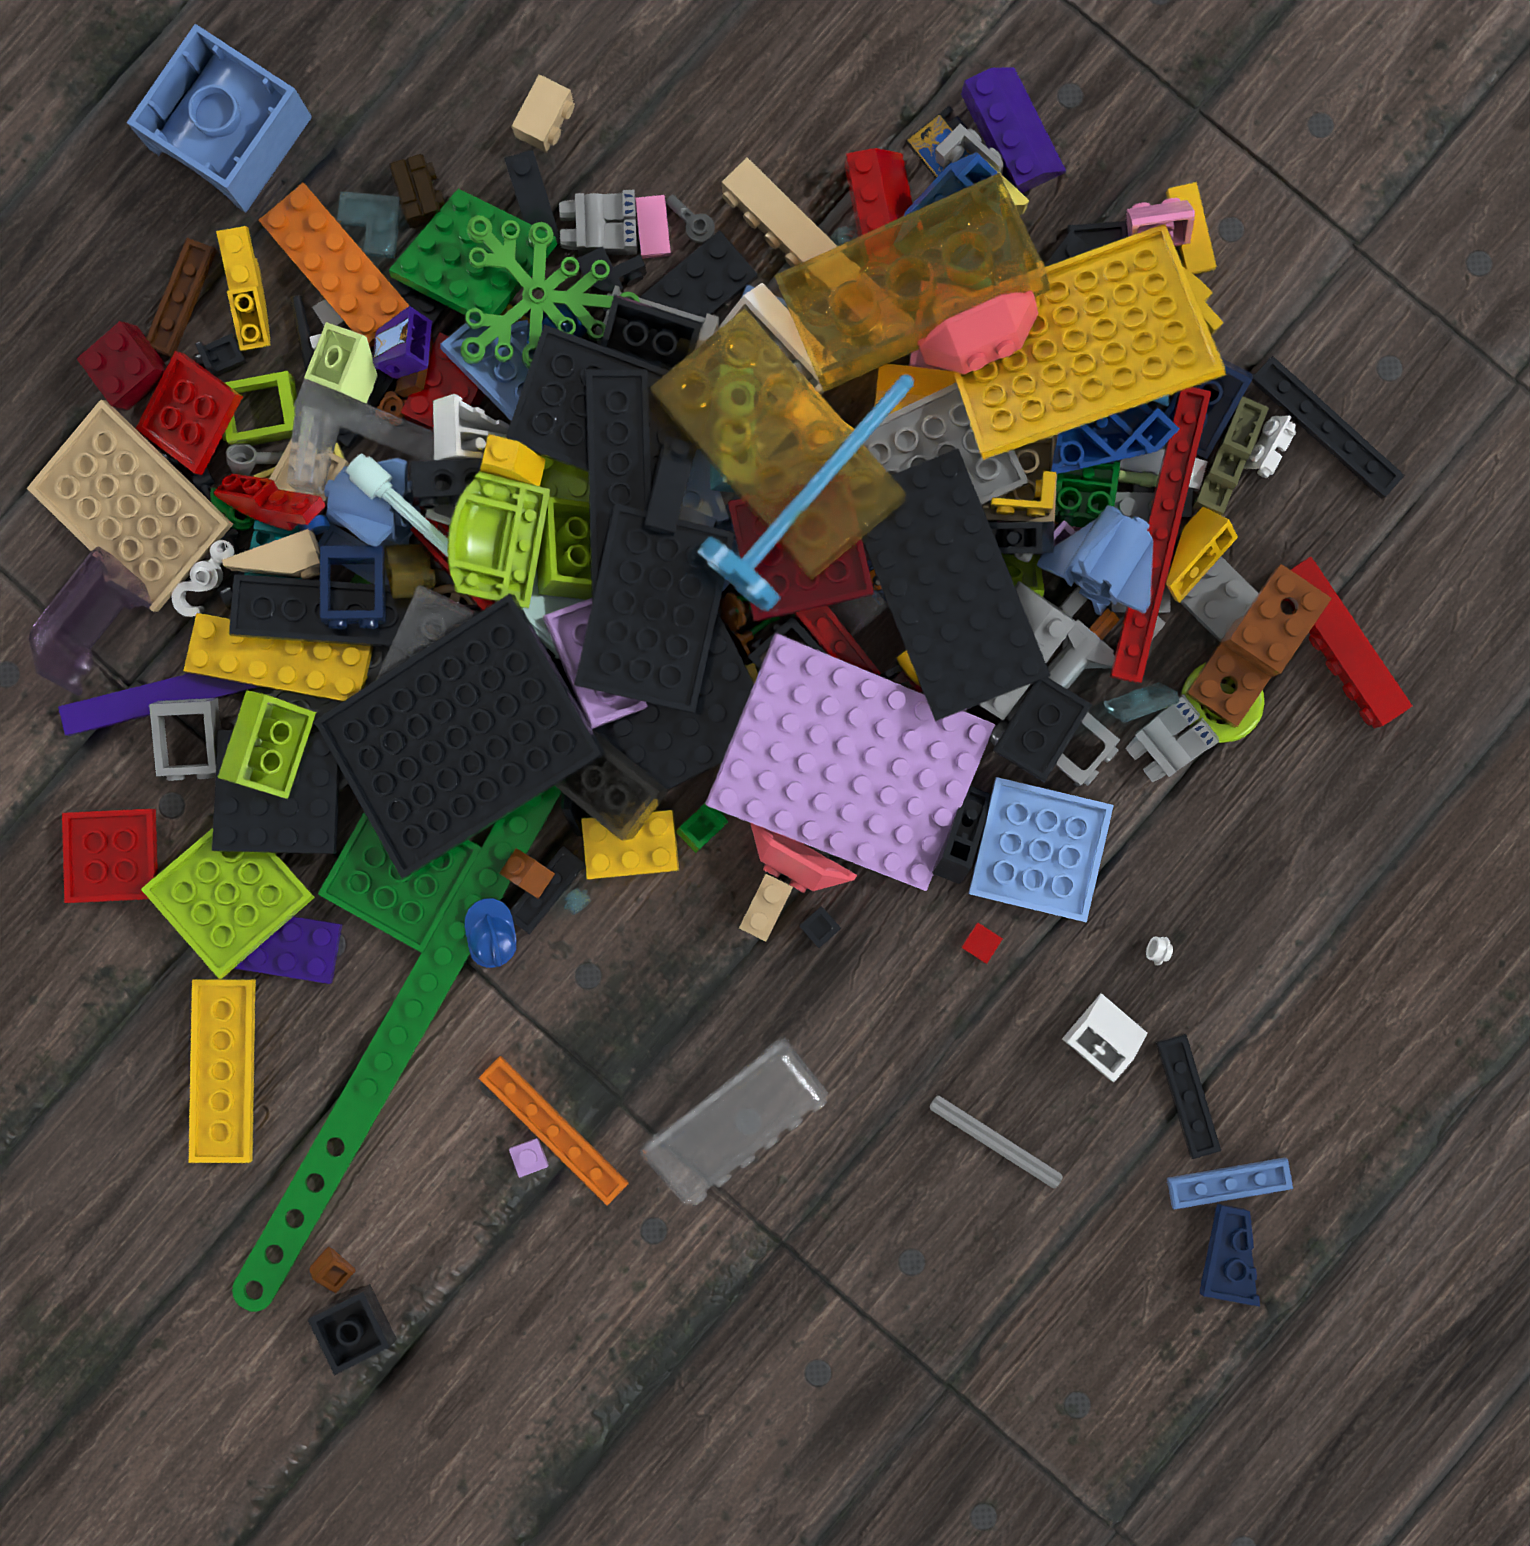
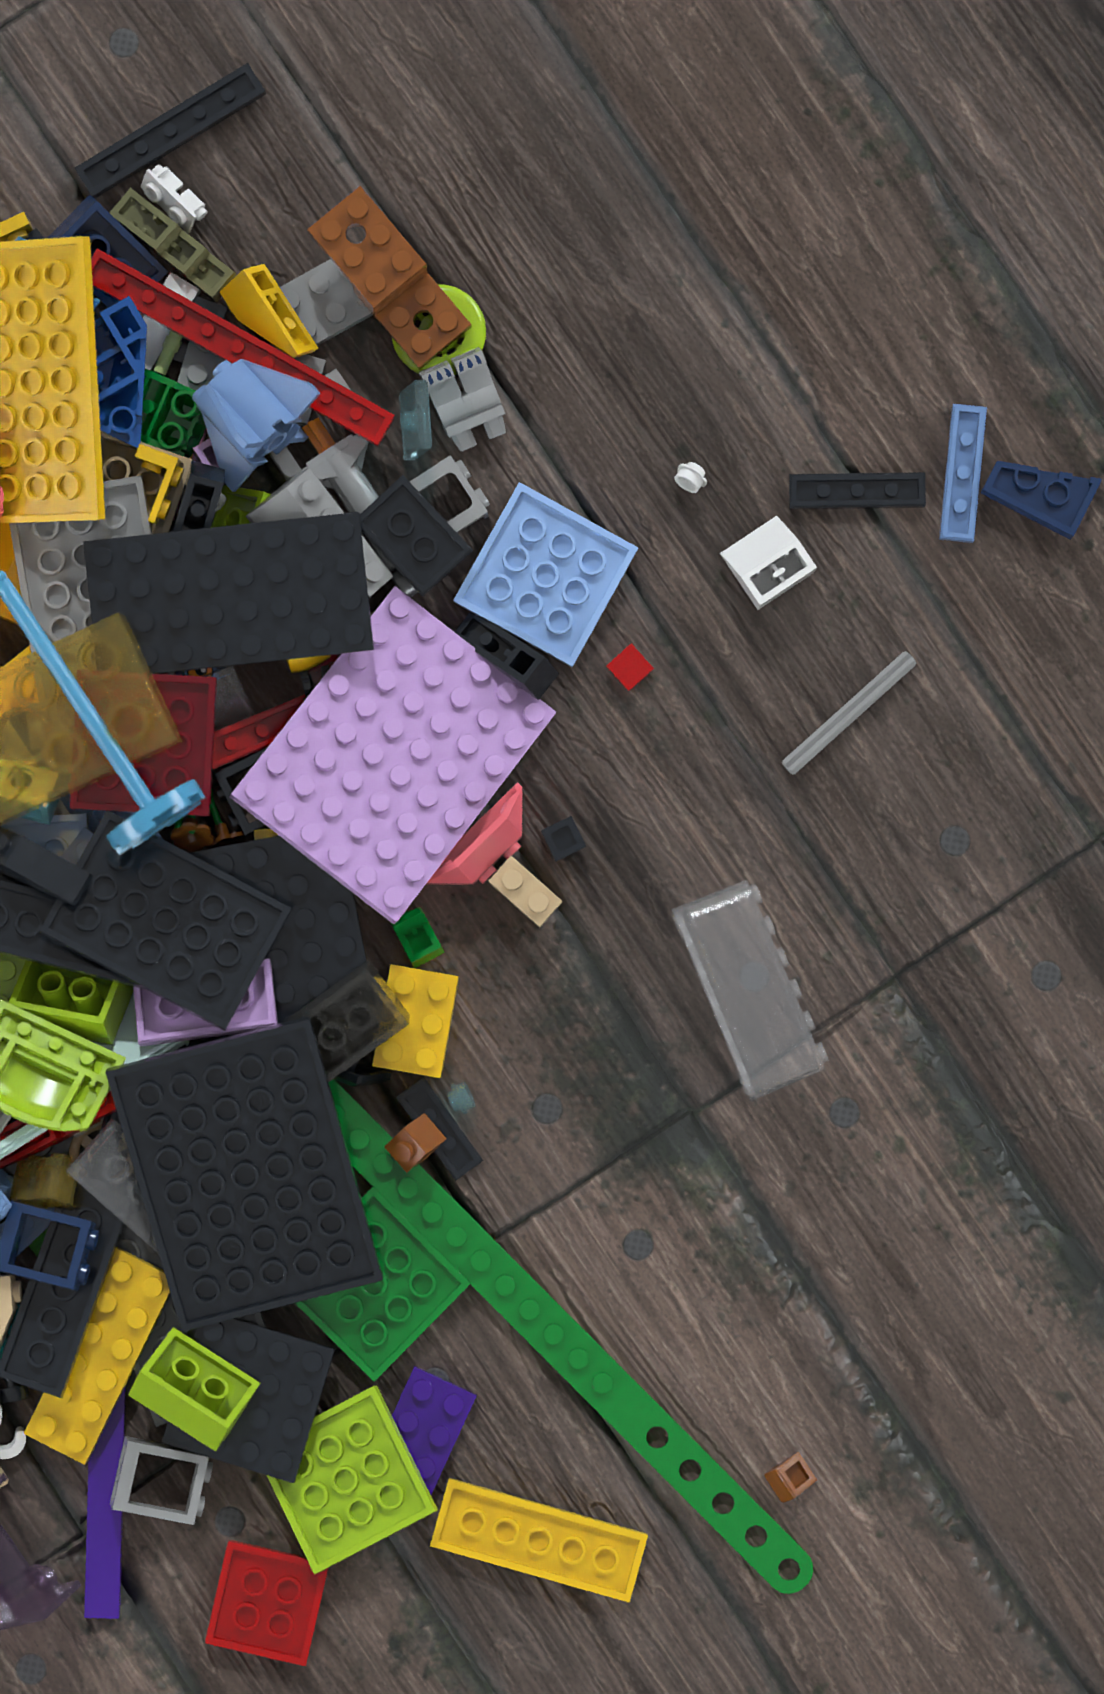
camera: 75 degrees left, 0 degrees up
(352, 1329) = (859, 1468): black brick -> none
(490, 933) = (469, 1202): blue piece -> none
(528, 1157) = (726, 1227): lavender plate -> none
(553, 1130) = (705, 1192): orange tile -> none
(1352, 655) = (425, 177): red brick -> none

